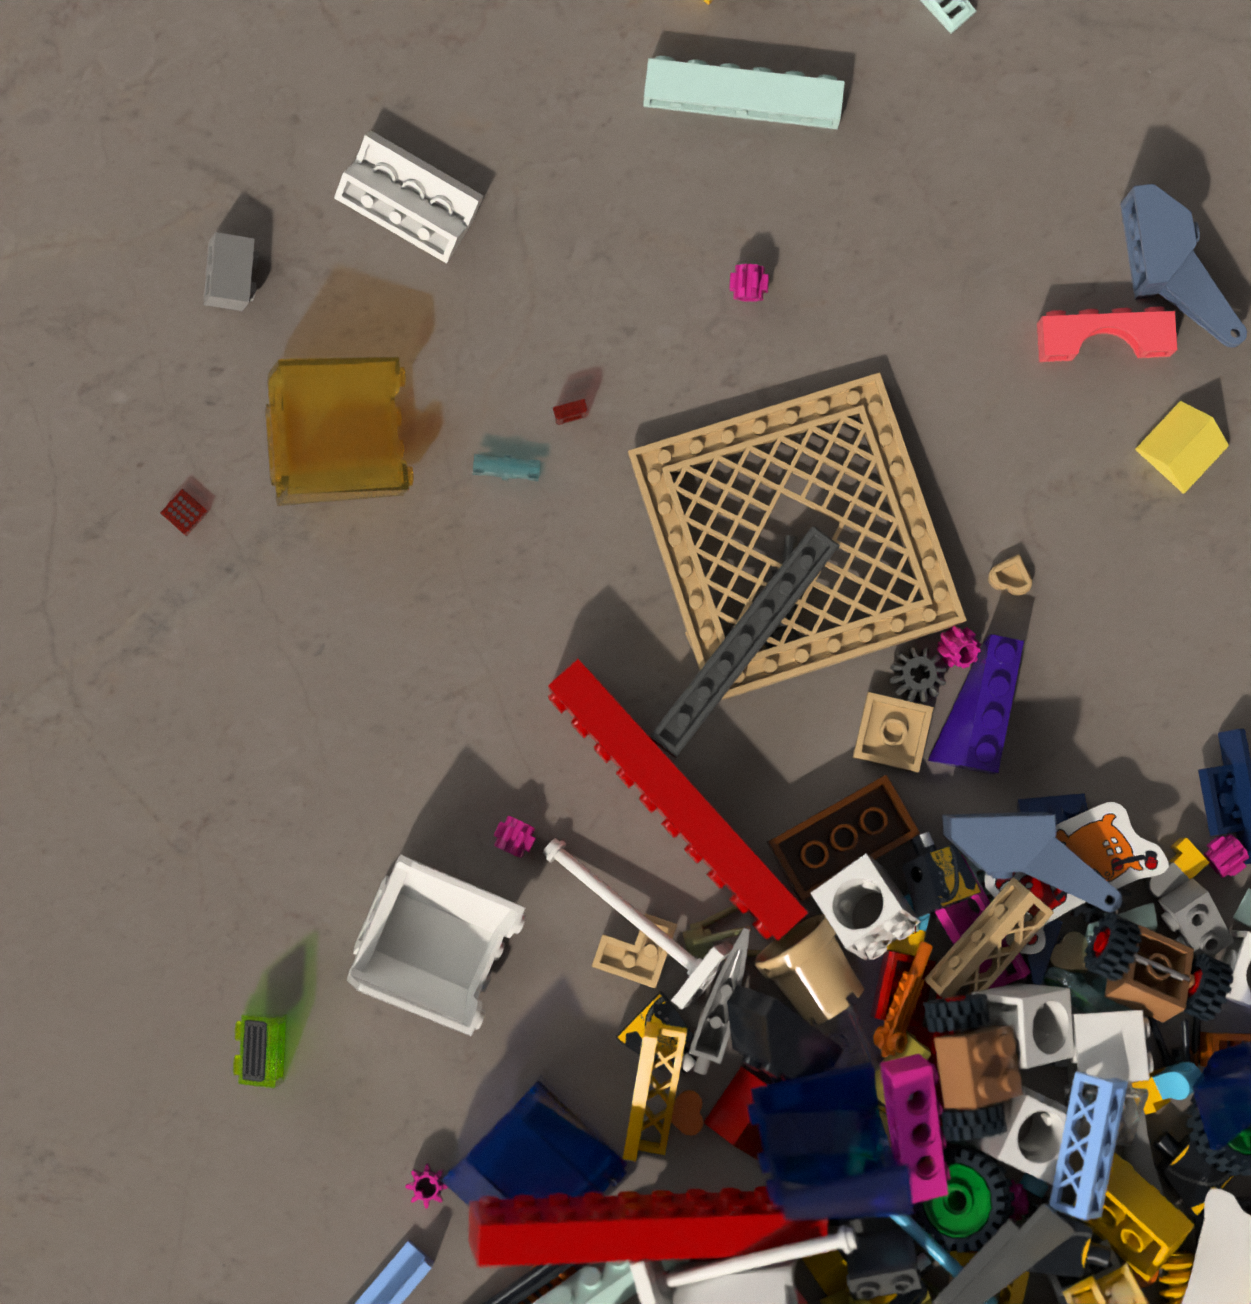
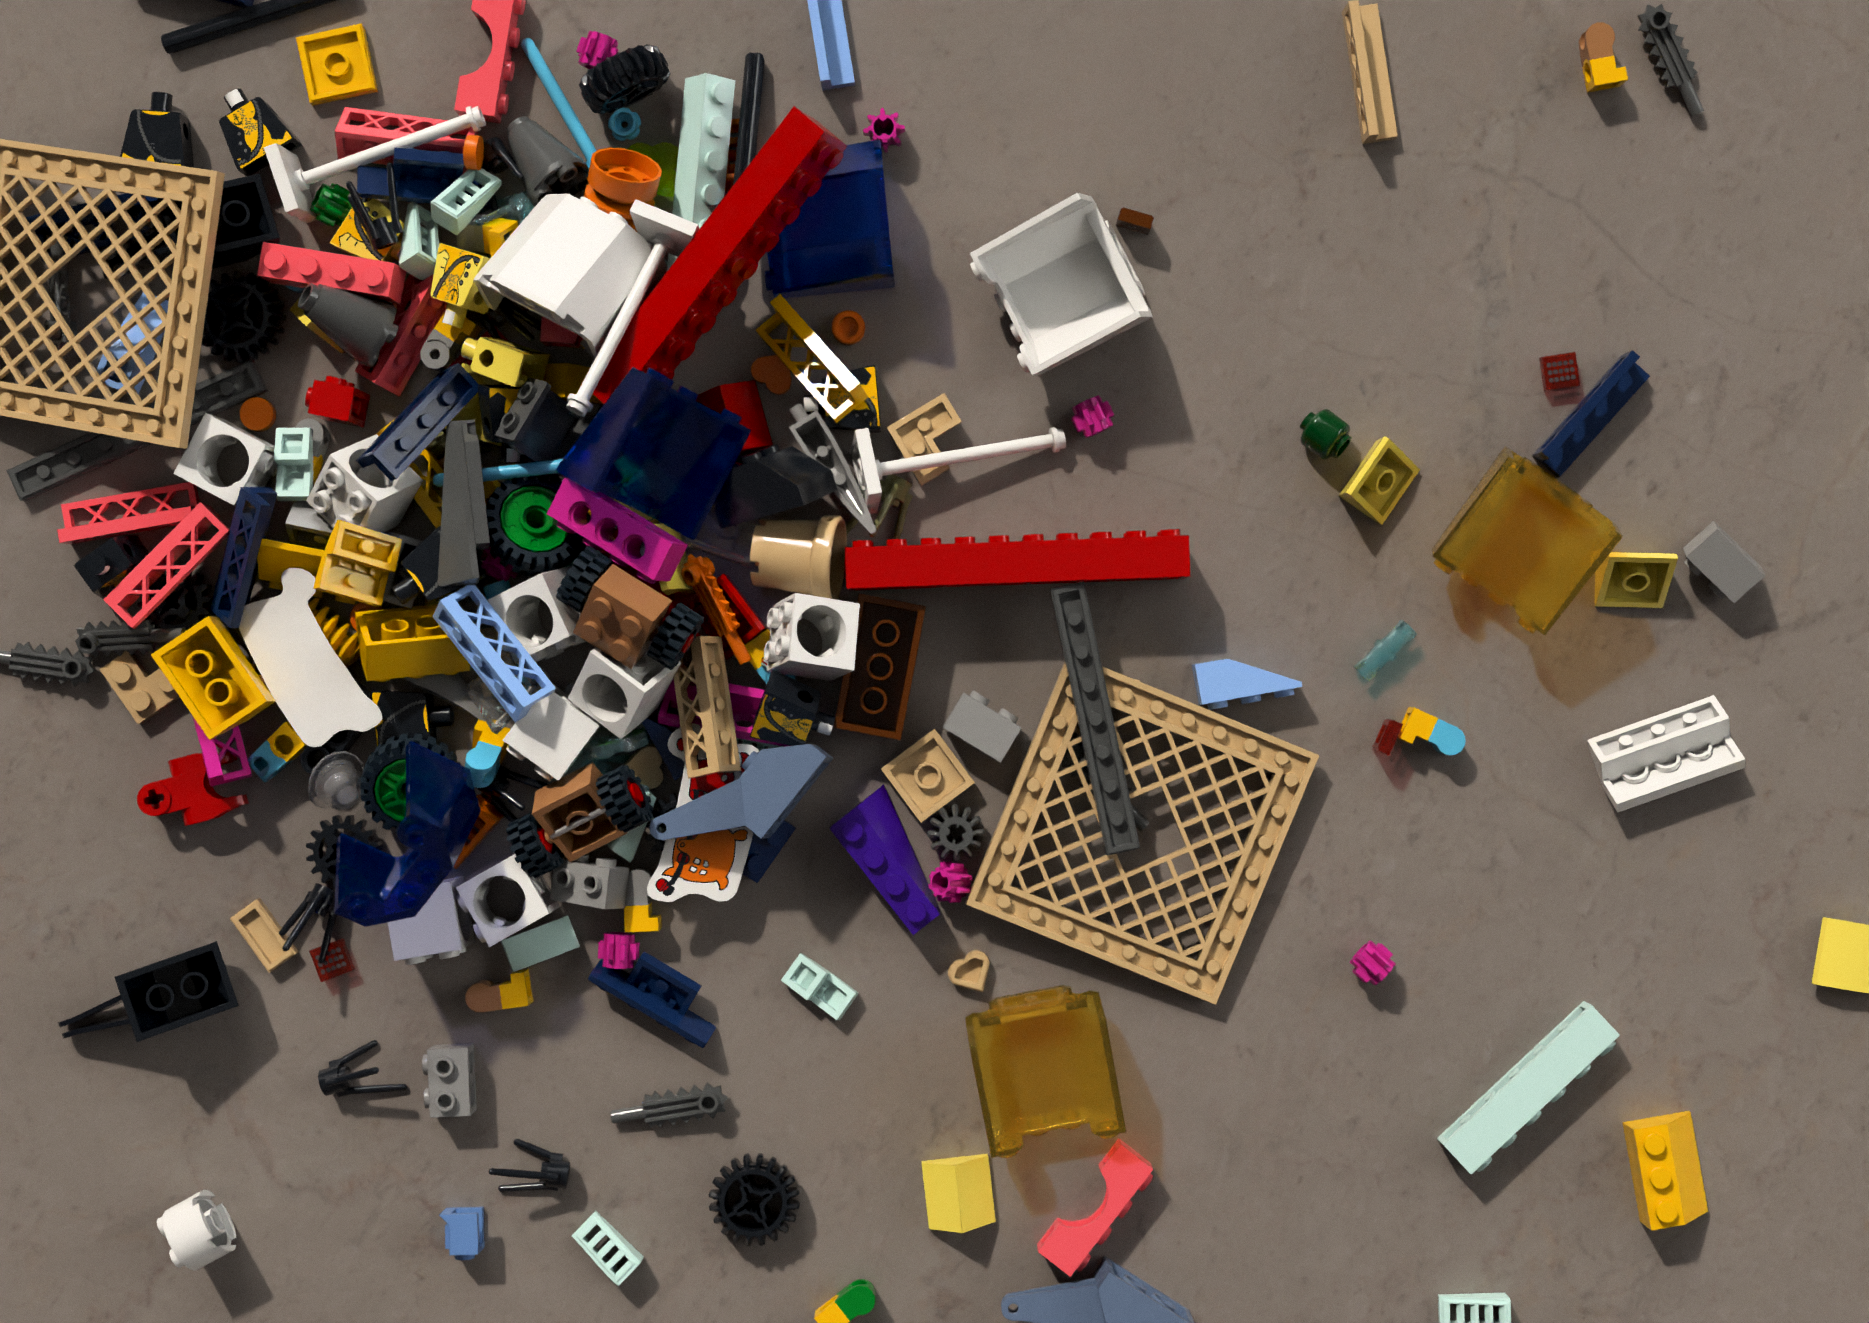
camera: 135 degrees right, 5 degrees up
(72, 846) = (1369, 72): none -> tan fence
(197, 461) = (1591, 414): none -> dark blue fence
(261, 1049) = (1092, 89): clear neon green slope -> none
(297, 326) = (1634, 579): none -> light yellow slope
(336, 931) = (1134, 220): none -> reddish brown tile
(380, 578) = (1380, 480): none -> light yellow slope
(380, 648) = (1325, 434): none -> dark green head
(535, 371) = (1443, 736): none -> leg
(602, 1084) = (848, 327): none -> orange tile
(627, 564) = (1230, 680): none -> light blue slope
(820, 721) = (982, 726): none -> light grey brick
(1037, 461) = (1044, 1067): none -> clear yellow windscreen
(1120, 680) = (819, 986): none -> light aqua slope

